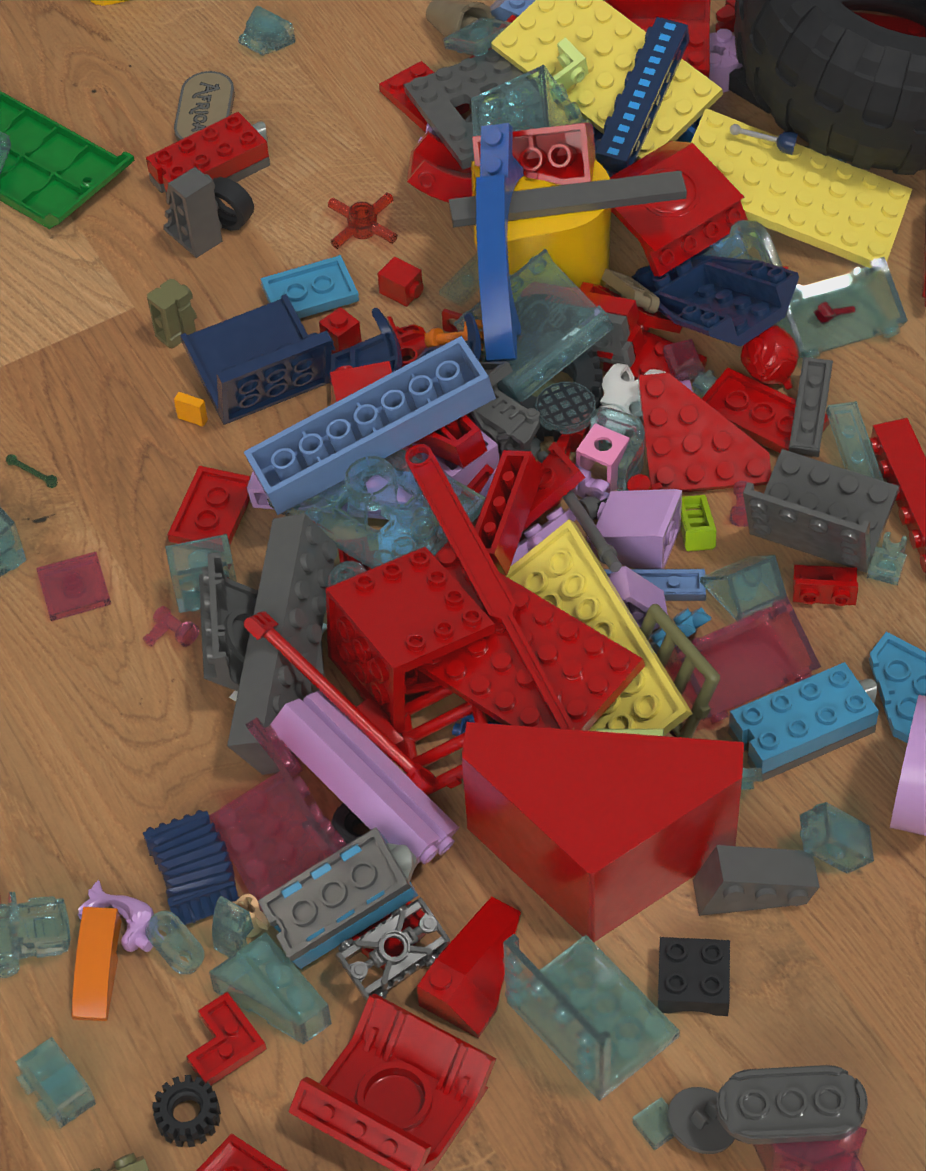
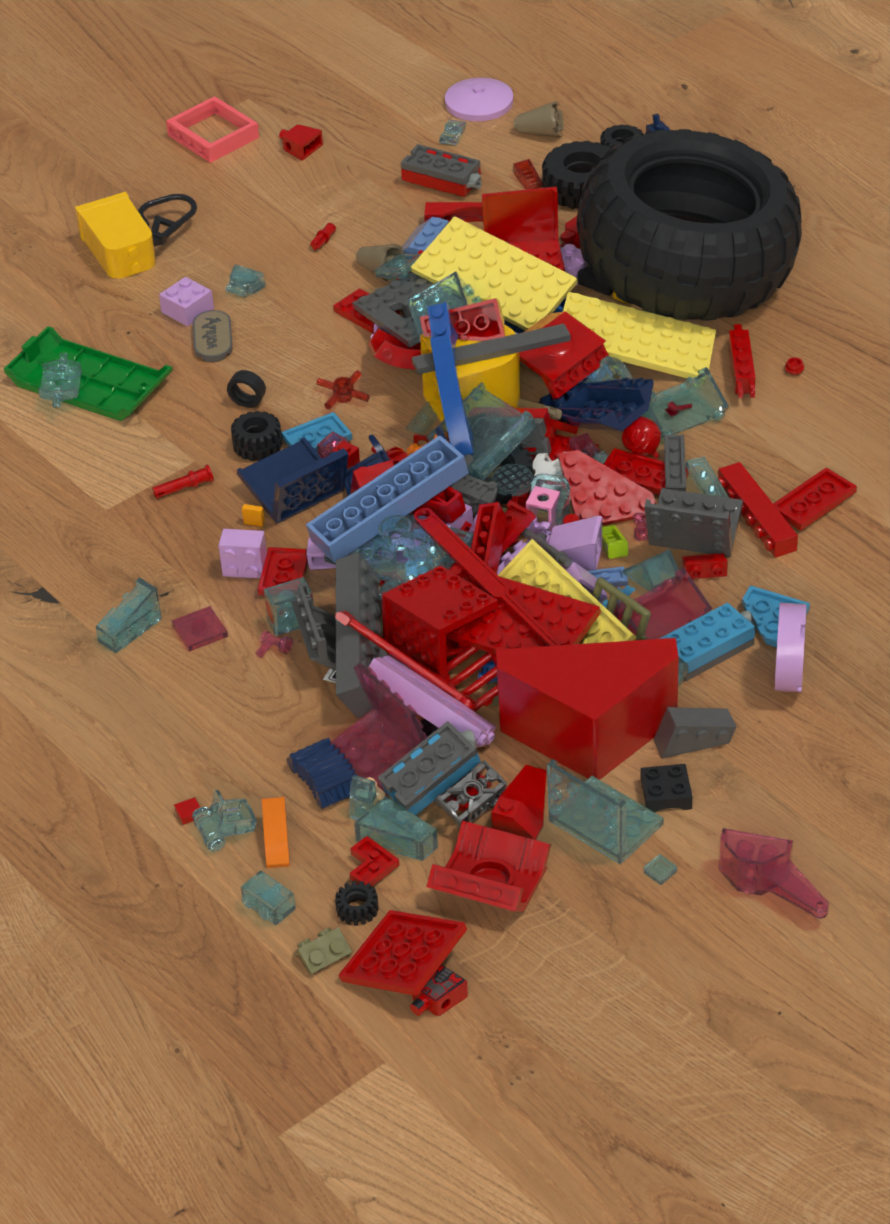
camera: 10 degrees left, 10 degrees down
(51, 480) = (165, 570): clear green hinge -> none
(120, 338) = (192, 480): none -> red pin
(133, 910) = (296, 803): lavender animal -> none
(156, 473) = (242, 553): none -> lavender brick
(171, 312) = (226, 458): olive brick -> none
(176, 943) = (325, 814): clear light blue plate -> none
(179, 53) = (186, 300): none -> lavender brick
(193, 212) = (225, 395): dark grey wedge -> none
(224, 149) = (215, 367): red piece -> none
(224, 280) = (256, 435): none -> black tyre
(320, 308) = (329, 443): none -> clear pink bracket
(400, 281) = (379, 423): red brick -> none
(573, 63) = (471, 271): yellowish green bracket -> none
(642, 94) = (525, 283): dark blue brick -> none
(695, 1121) = (688, 862): dark grey piece -> none
(785, 141) = (626, 305): hinge -> none
(791, 1104) = (743, 833): dark grey tile -> none
(836, 837) = (741, 698): clear light blue brick -> none
(888, 561) = (743, 547): clear light blue plate -> none

